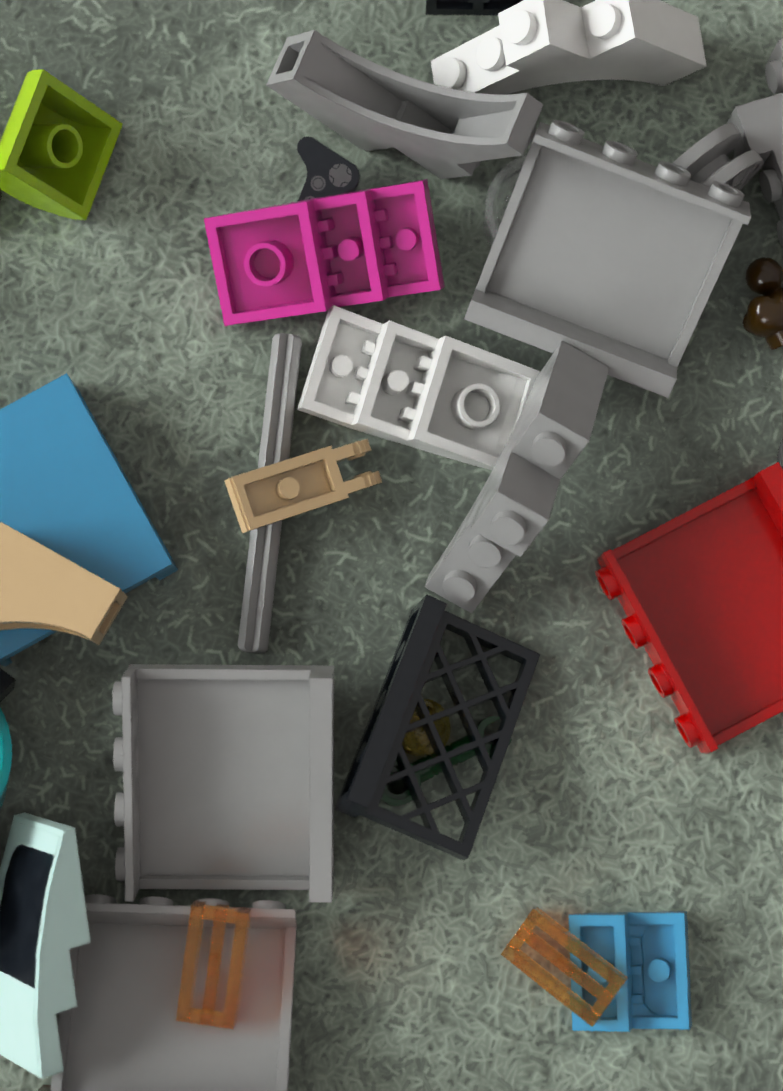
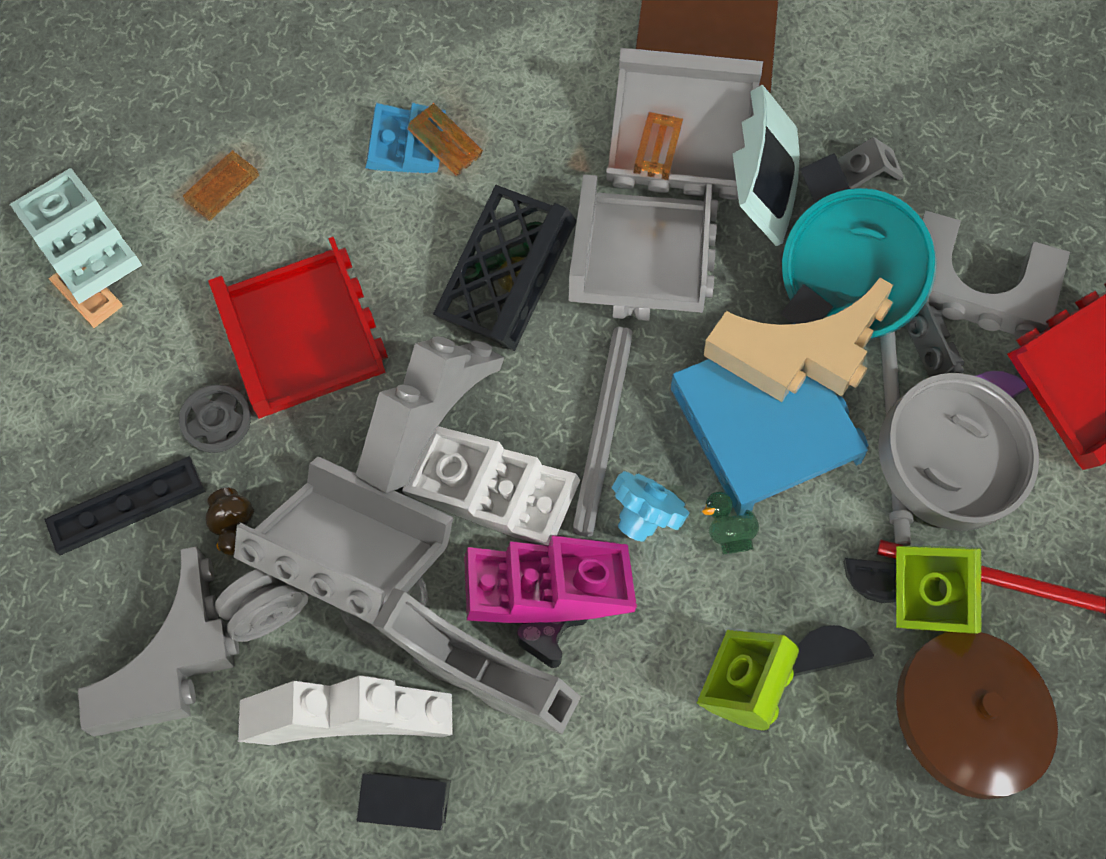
camera: 170 degrees left, 15 degrees down
(84, 353) = (732, 532): none -> clear green animal
(195, 369) = (646, 506): none -> medium azure plant
(296, 485) = (579, 421): tan hinge -> none

